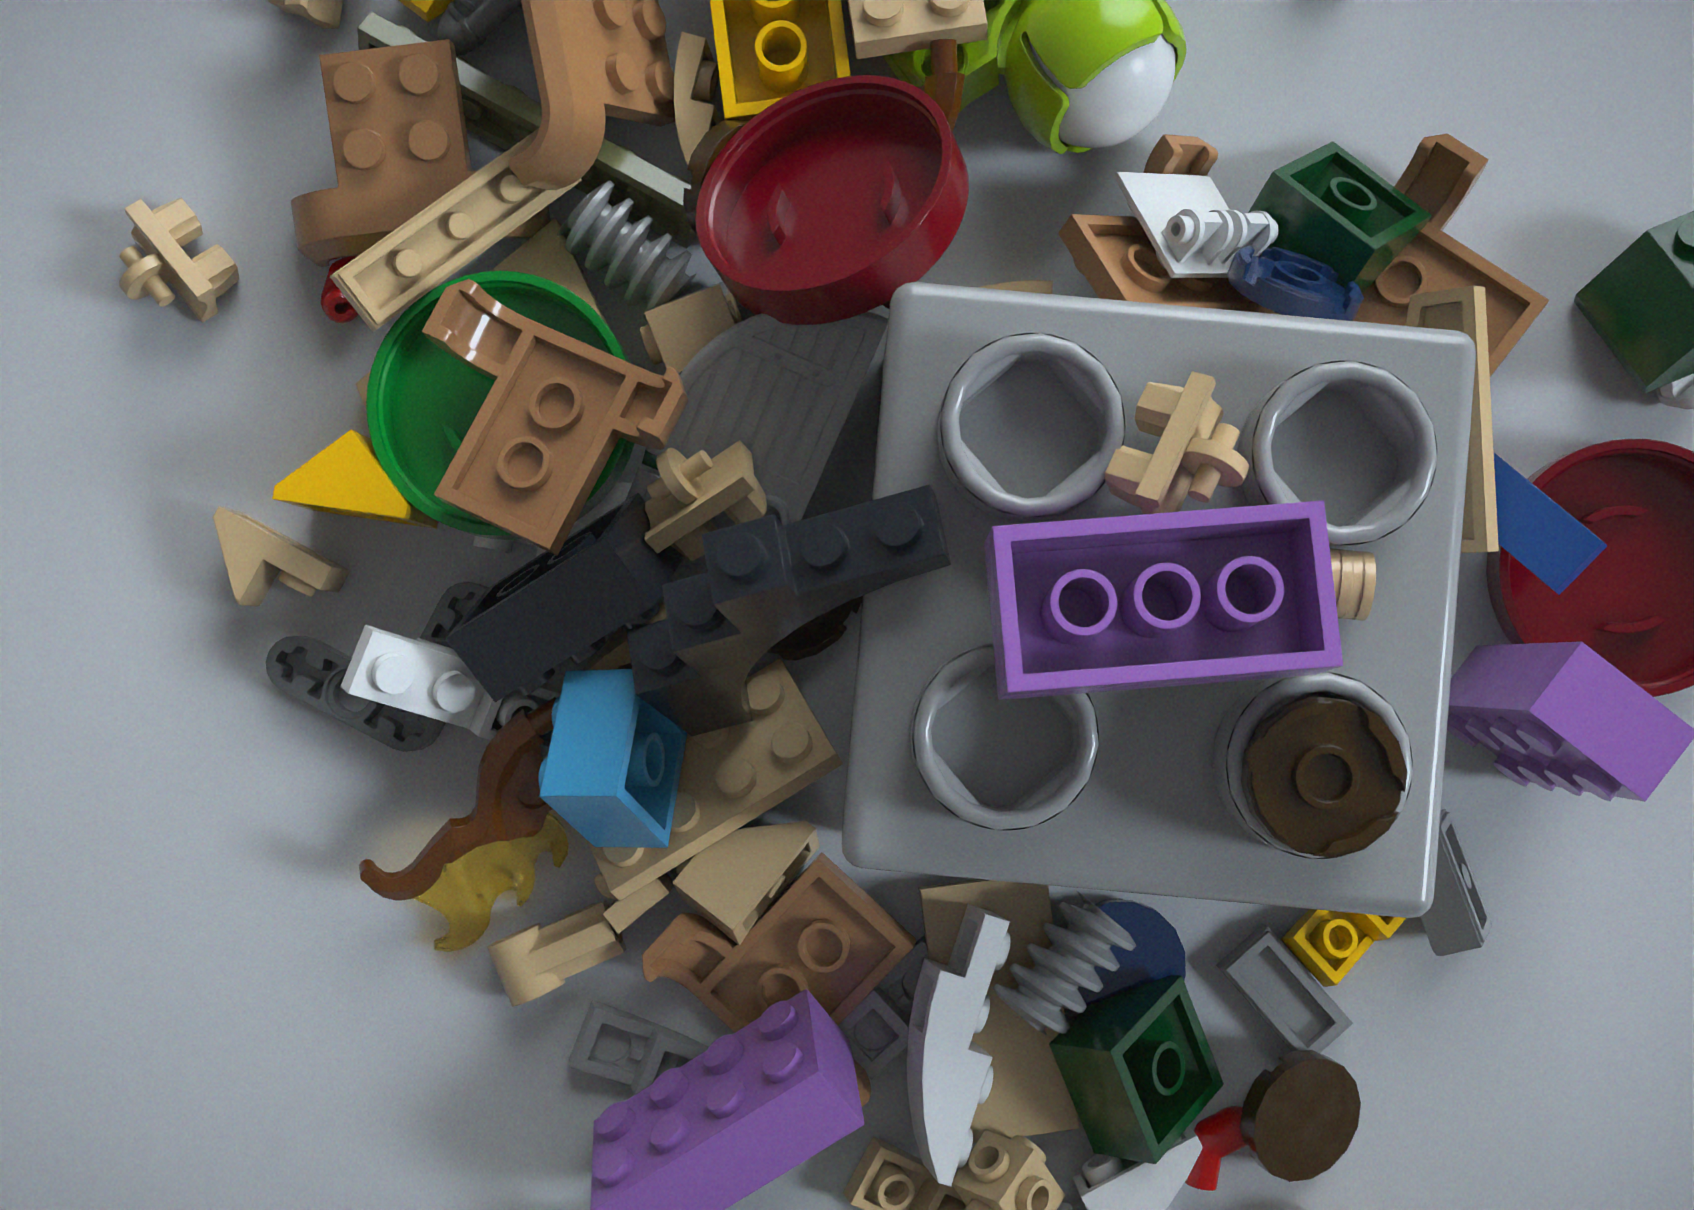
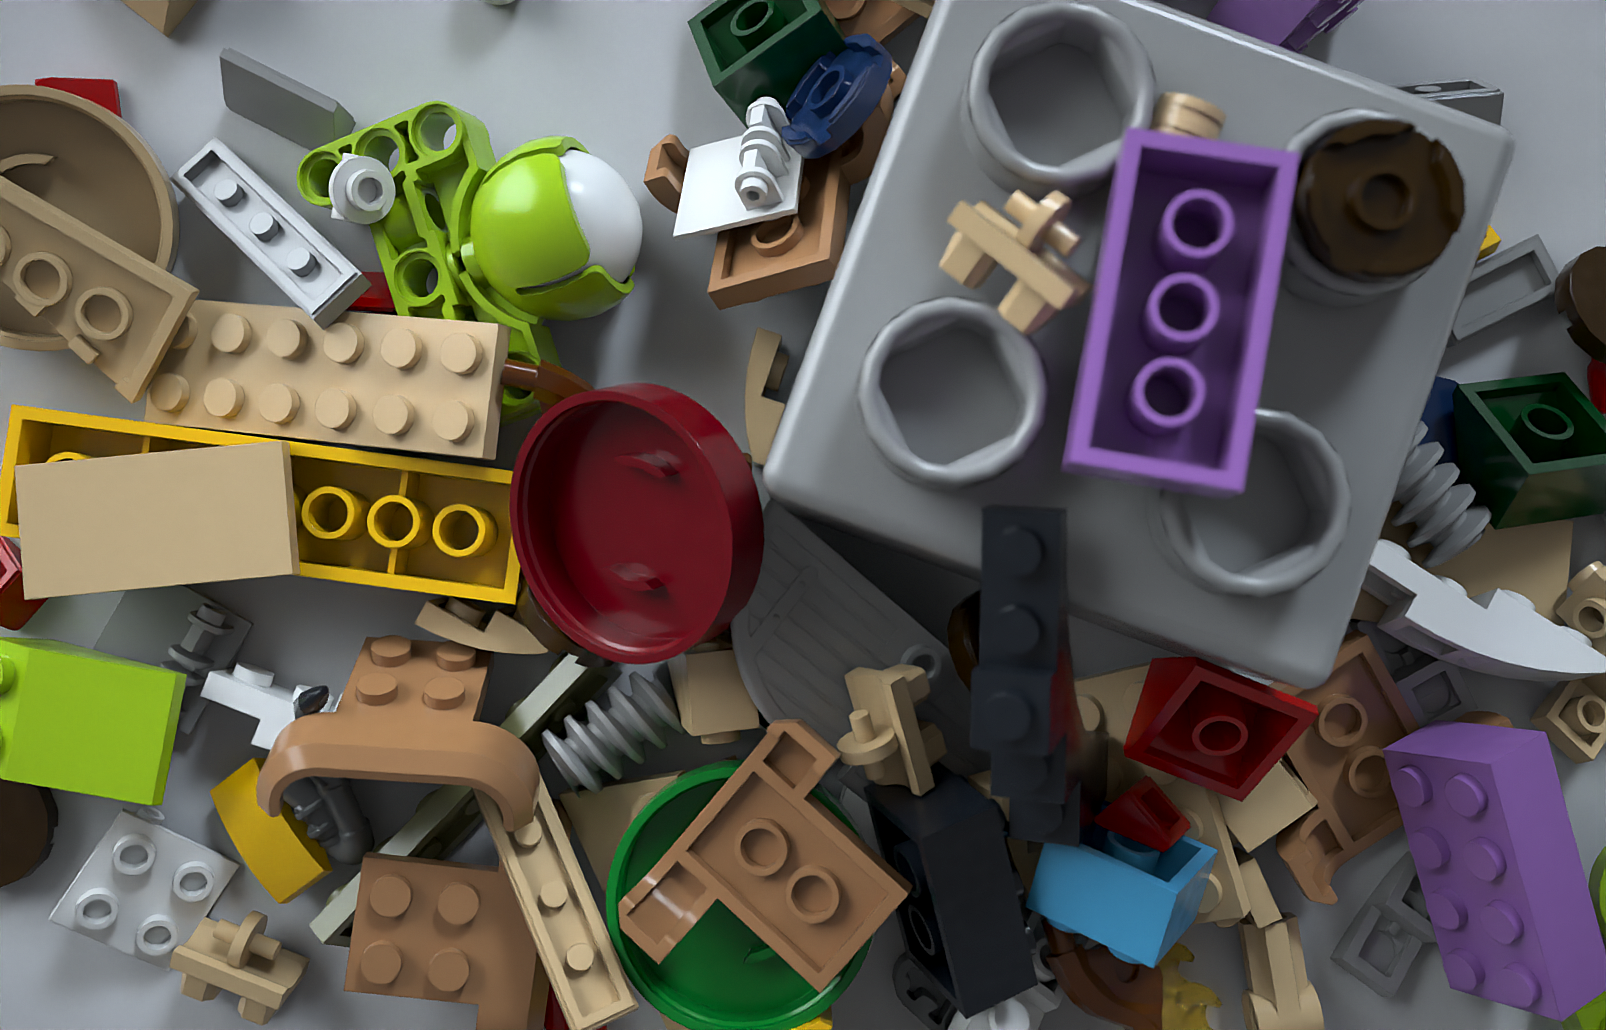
camera: 75 degrees left, 0 degrees up
(682, 768) = (1145, 816): none -> red slope
(784, 808) = (1213, 725): none -> red slope

